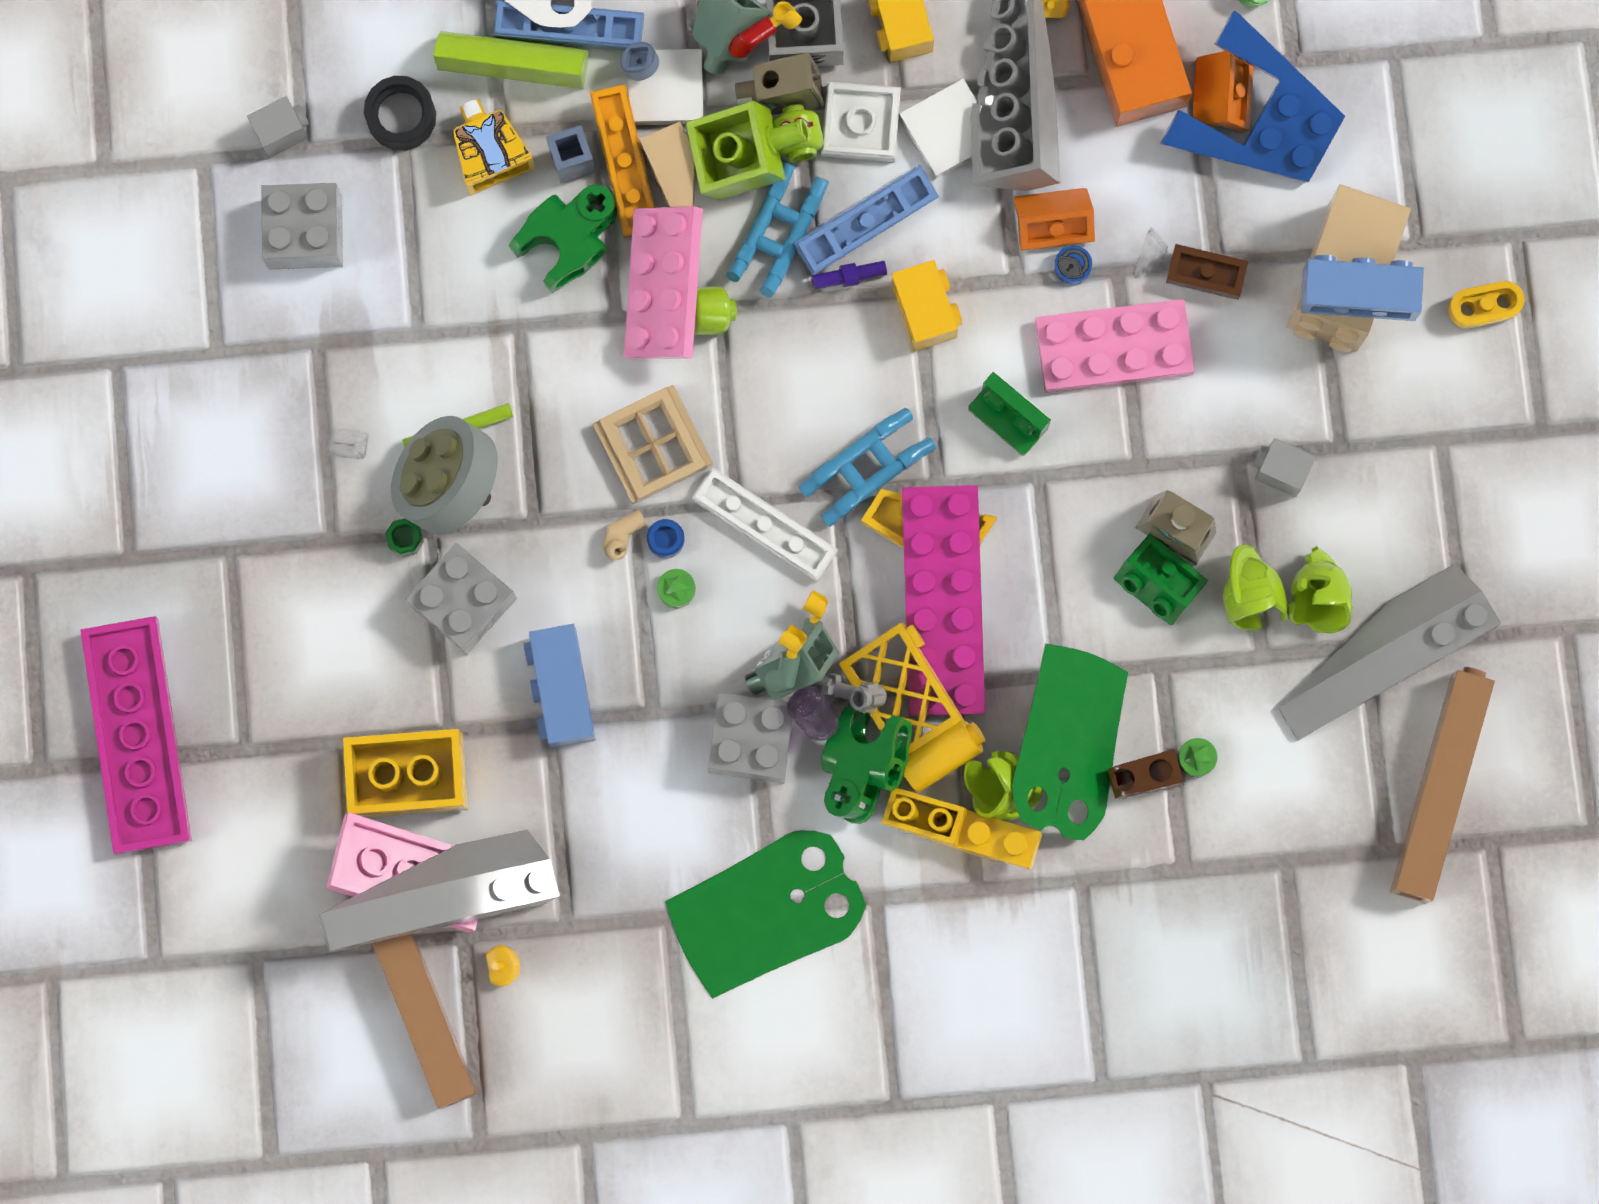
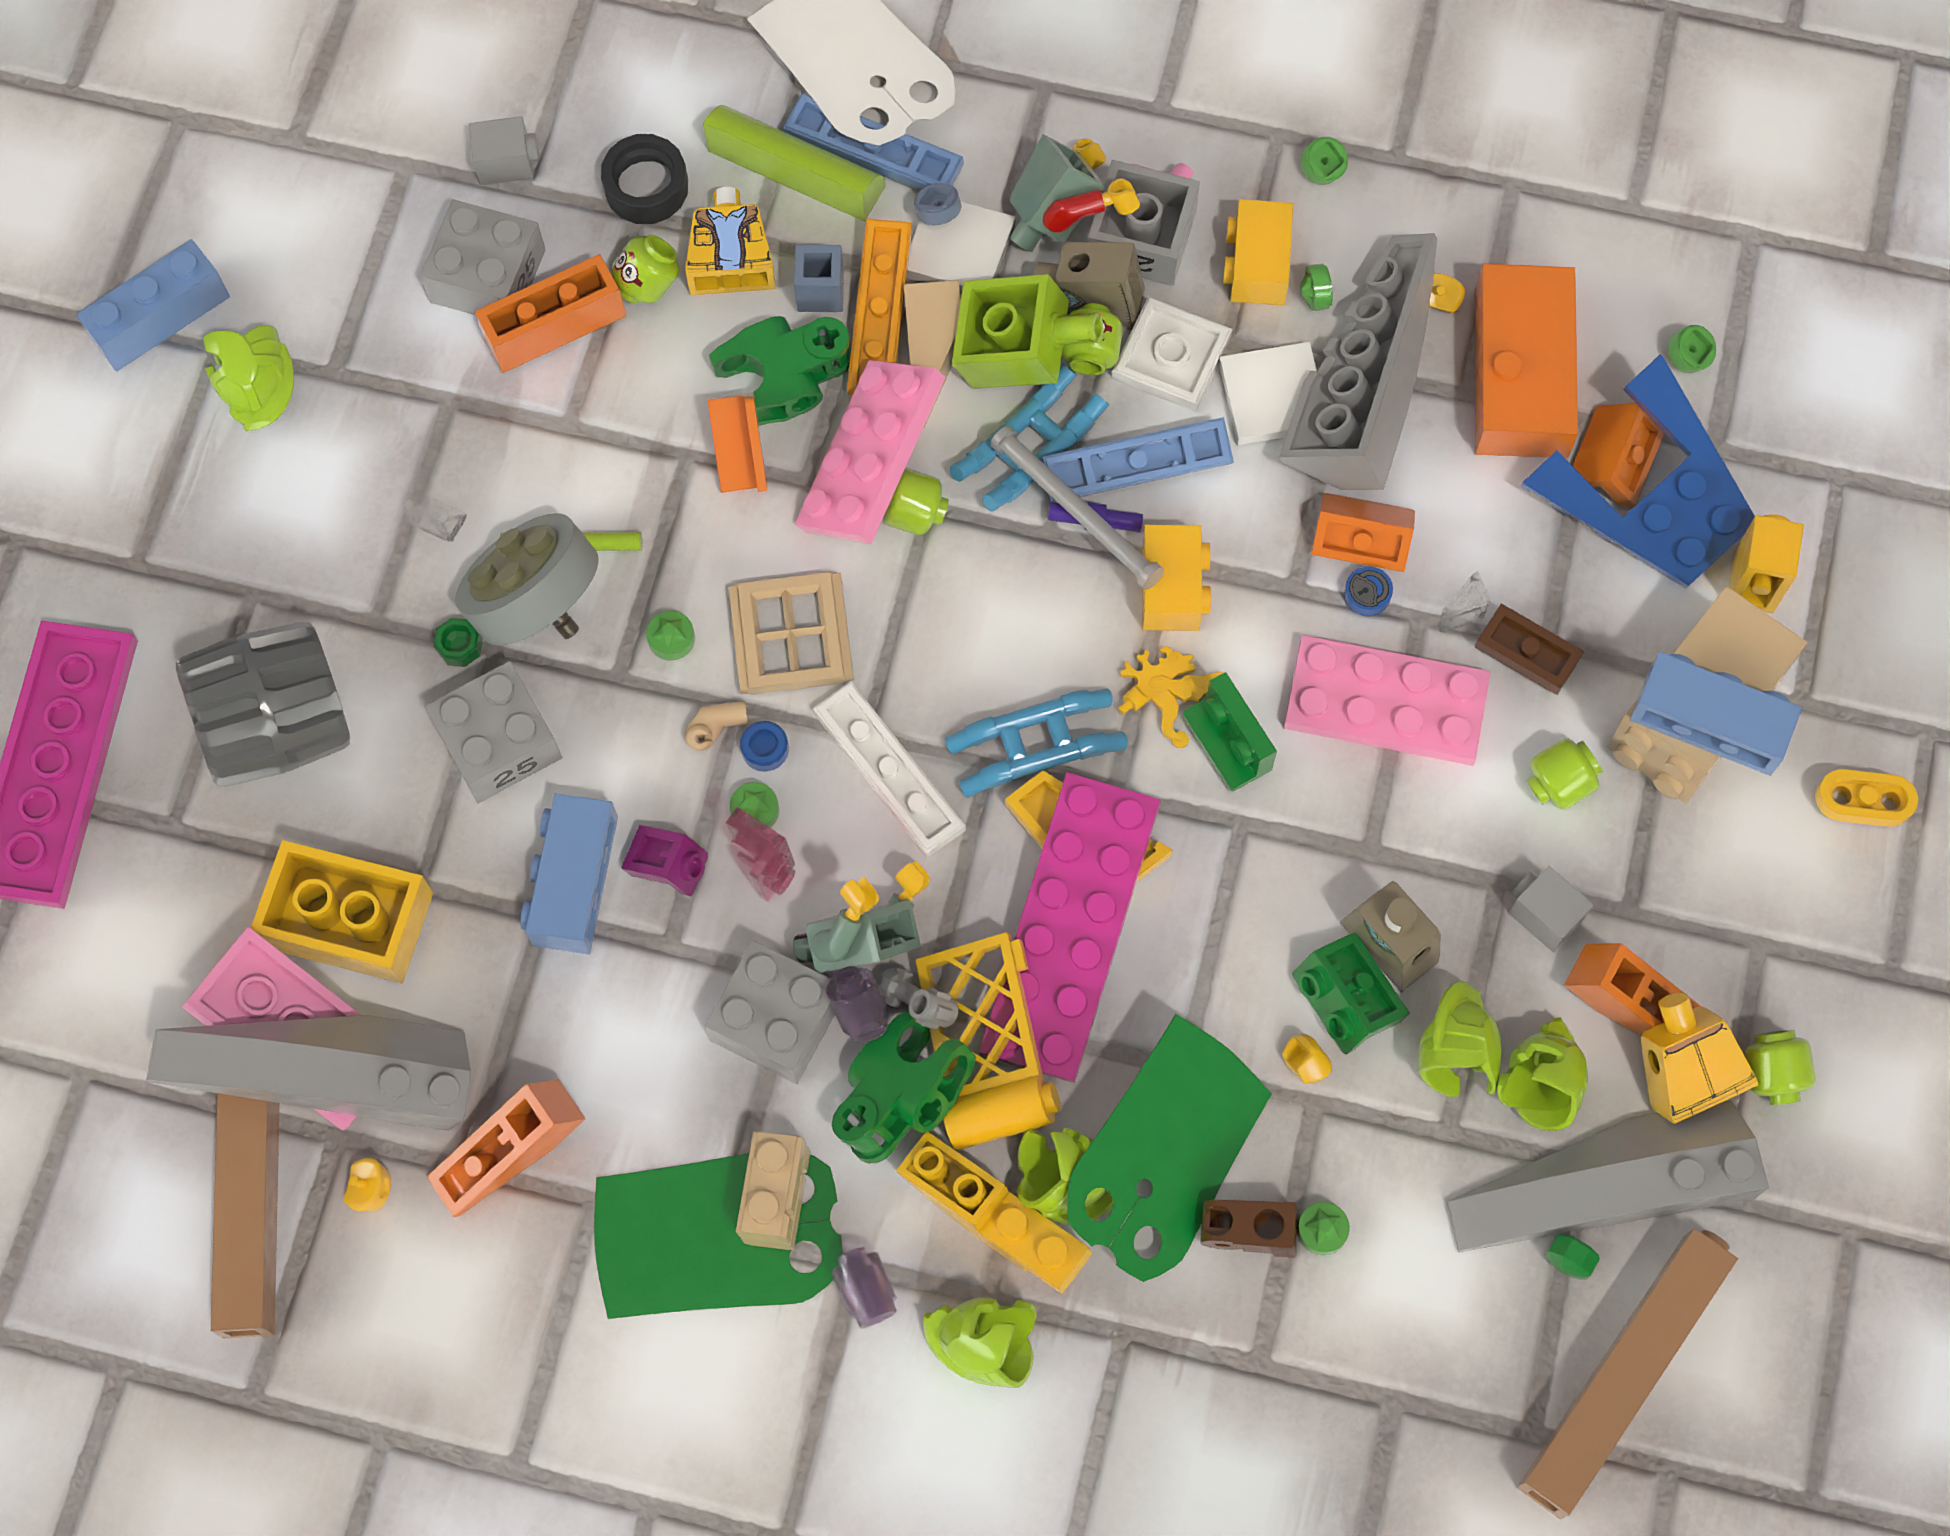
camera: 20 degrees right, 10 degrees down
(57, 347) = (153, 305): none -> medium blue brick
(164, 380) = (253, 376): none -> lime helmet
(285, 639) = (263, 703): none -> dark grey wheel
(373, 252) = (551, 313): none -> orange brick
(432, 190) = (645, 269): none -> lime head
(559, 309) = (737, 442): none -> orange panel
(562, 476) = (670, 635): none -> bright green tile
(593, 902) = (506, 1144): none -> orange slope
(626, 650) = (666, 859): none -> magenta bracket
(695, 619) = (763, 852): none -> clear pink bracket
(764, 240) = (1147, 573): none -> light grey bar
(799, 868) = (773, 1191): none -> tan brick
(889, 913) = (864, 1287): none -> clear purple brick
(942, 393) = (1158, 685): none -> yellow piece
(954, 31) = (1317, 287): none -> bright green tile
(987, 921) = (984, 1340): none -> lime helmet
(1146, 639) = (1306, 1059): none -> yellow piece
(1263, 361) = (1564, 773): none -> lime head
(1360, 149) = (1766, 561): none -> yellow brick
(1372, 514) = (1620, 986): none -> orange slope
(1378, 718) = (1572, 1257): none -> green tile
(1420, 548) = (1692, 1060): none -> yellow torso
(1482, 529) = (1781, 1066): none -> lime head

